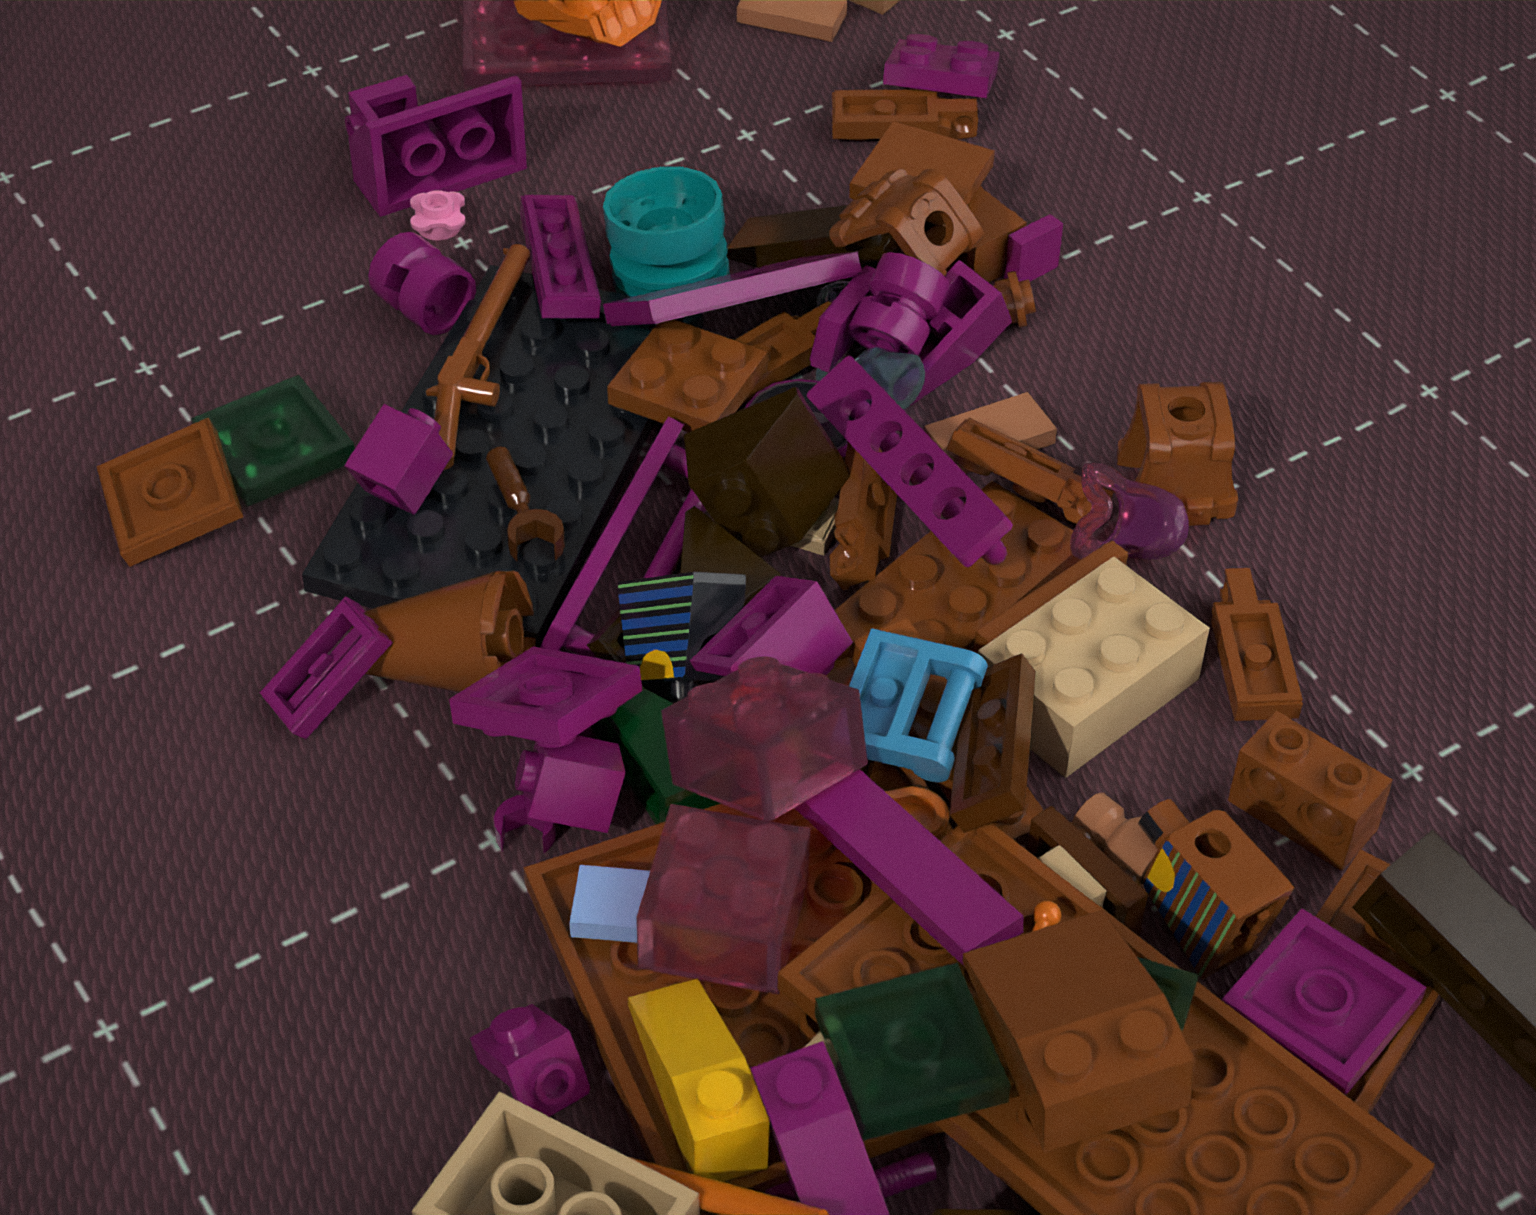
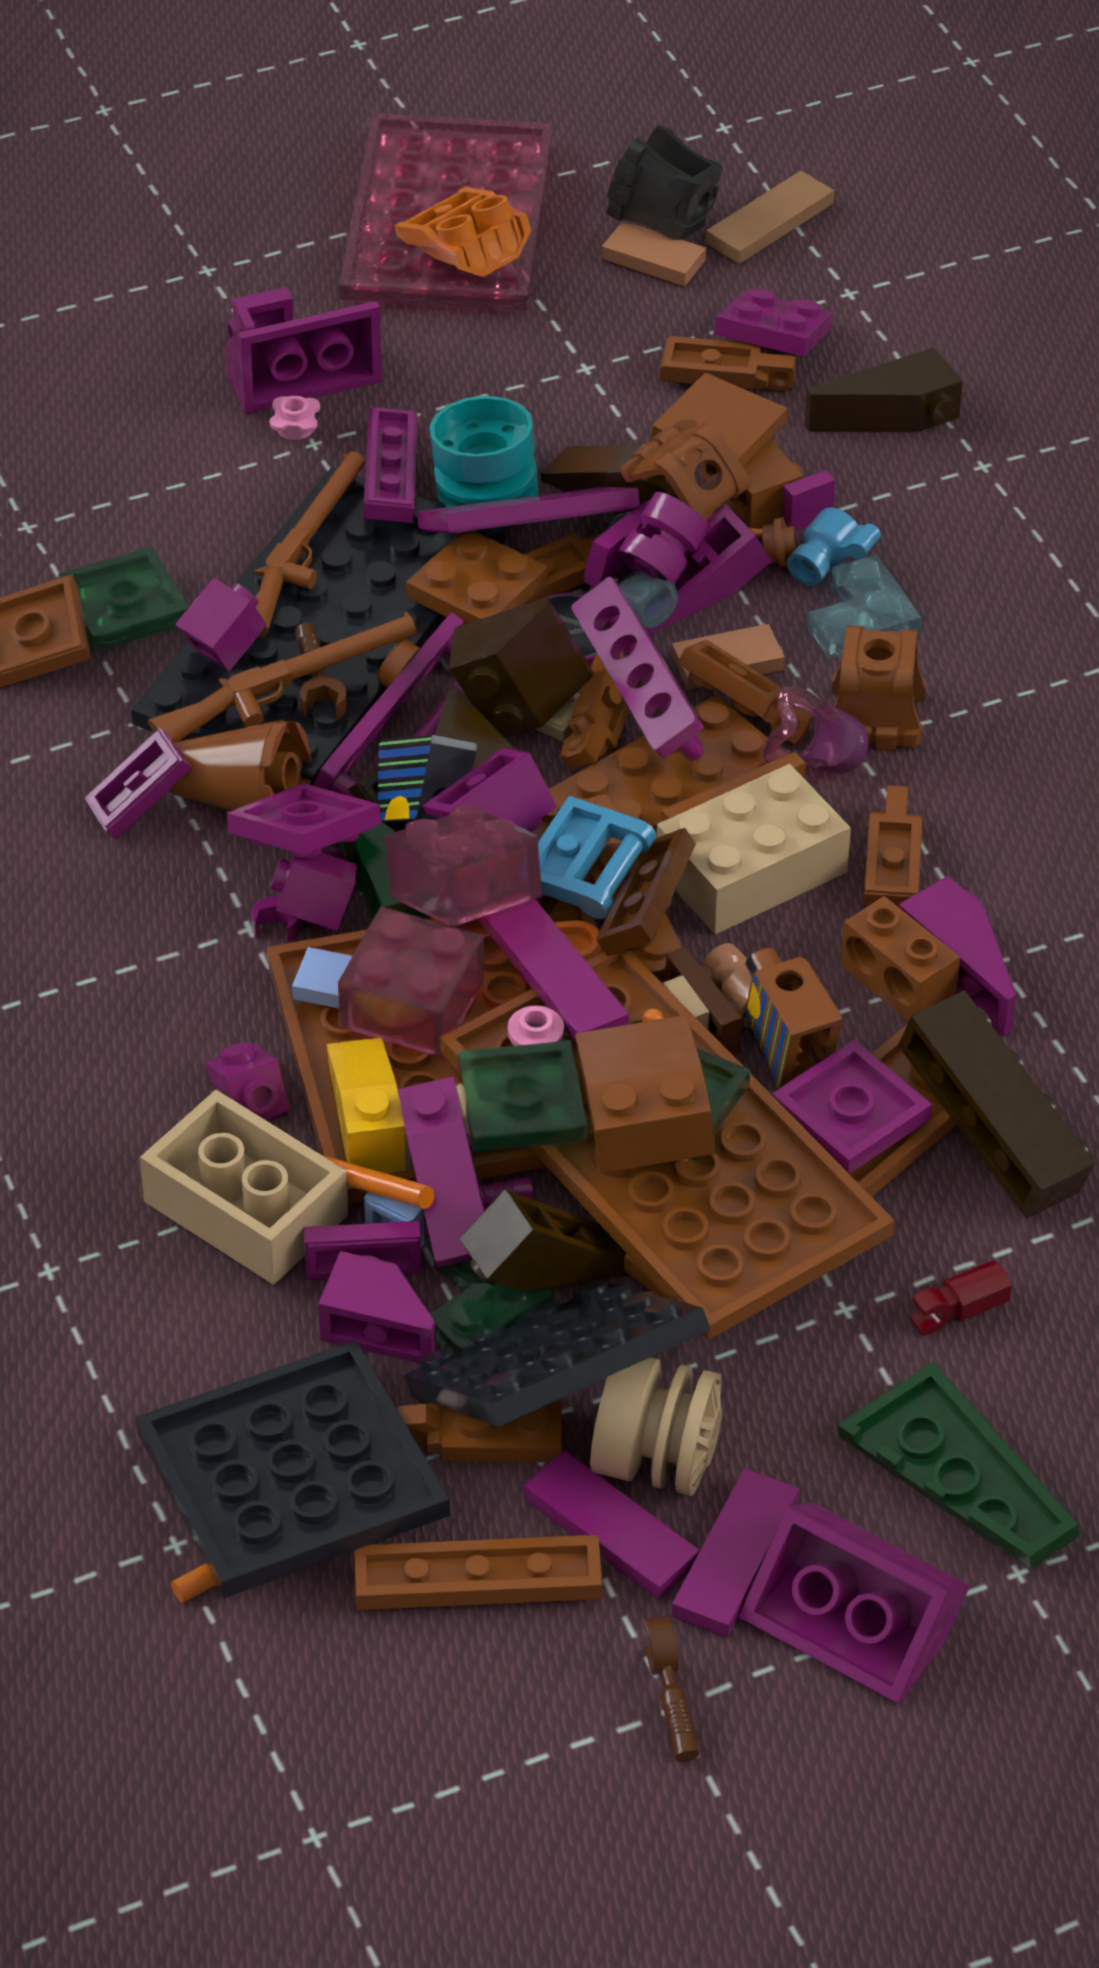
camera: 10 degrees right, 0 degrees up
(421, 282) = (267, 476): magenta wheel -> none
(440, 532) = (255, 682): none -> dark orange piece
(615, 483) = (396, 661): none -> dark orange tile
(903, 930) = (535, 1026): none -> bright pink plate
(1069, 293) = (828, 543): none -> dark azure piece
(1086, 133) = (890, 397): none -> dark brown slope
(1128, 356) = (870, 601): none -> clear light blue plate
(1379, 737) = (964, 927): none -> magenta slope

